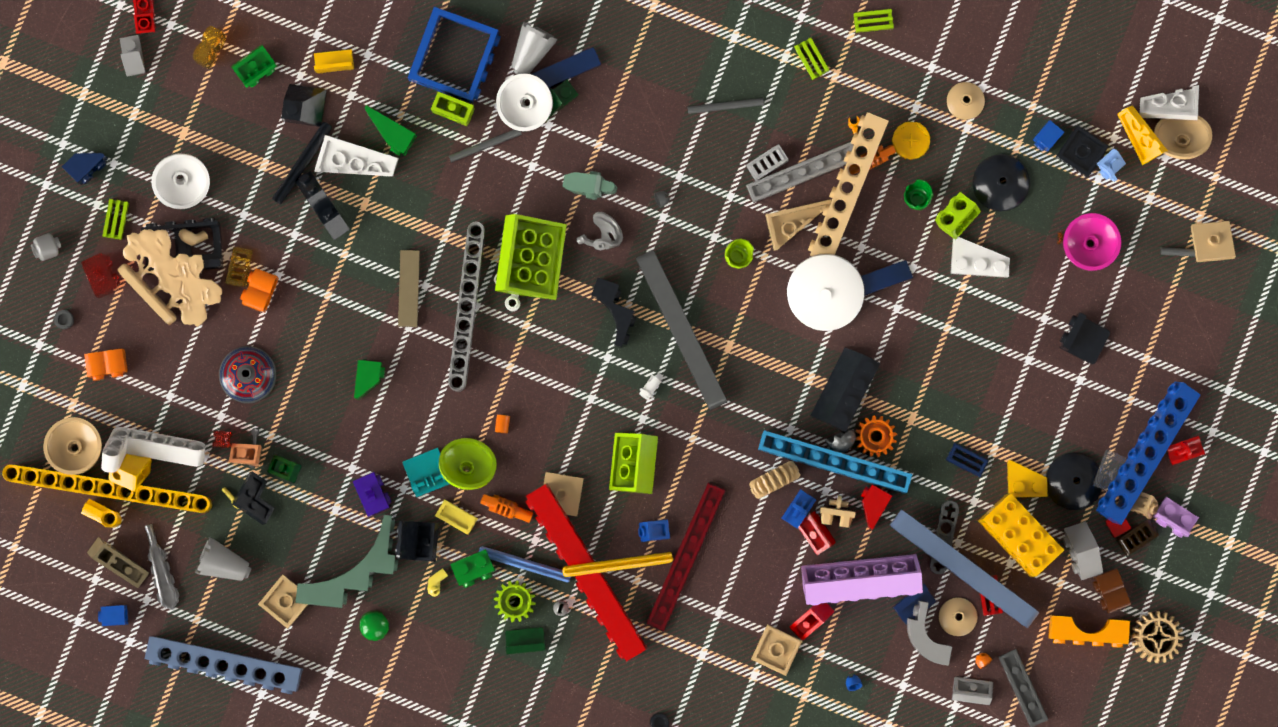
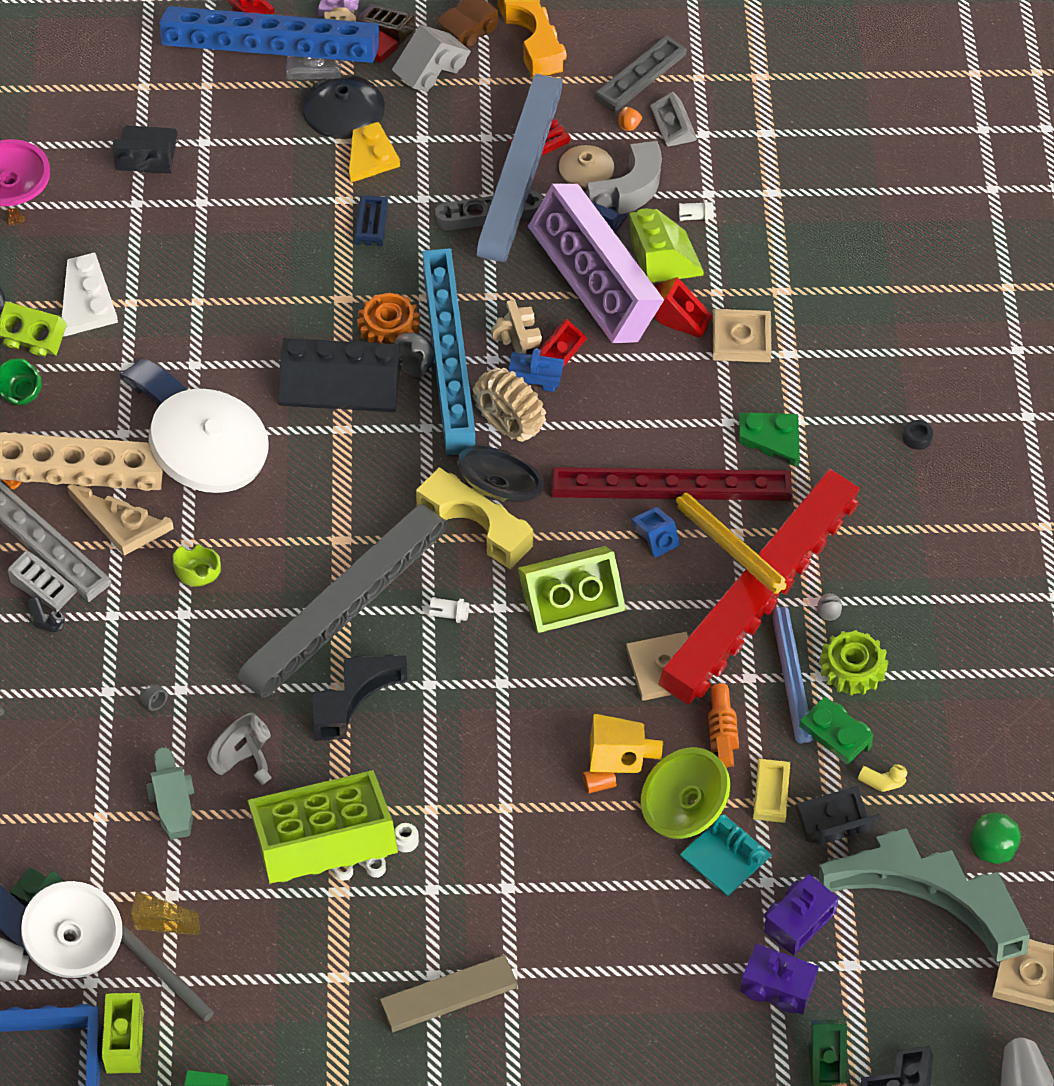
camera: 115 degrees left, 30 degrees down
(338, 464) = (779, 979): none -> dark purple brick
(367, 377) = (622, 992): green slope -> none
(469, 316) = (428, 905): light grey beam -> none
(513, 441) = (620, 745): none -> yellow torso
(520, 149) = (161, 916): none -> clear yellow slope
(525, 640) = (904, 631): dark green panel -> none
(696, 633) = (771, 434): none -> green wing
(728, 417) = (450, 498): none -> light yellow arch
(731, 461) = (500, 474): none -> black dish
(740, 155) = (43, 620): none -> black arm
(853, 683) = (735, 240): blue hinge -> none
(858, 630) = (662, 247): none -> lime slope
(873, 504) = (486, 292): red slope -> none
(887, 668) = (696, 211): none -> white pin
(1020, 535) = (445, 119): yellow brick -> none

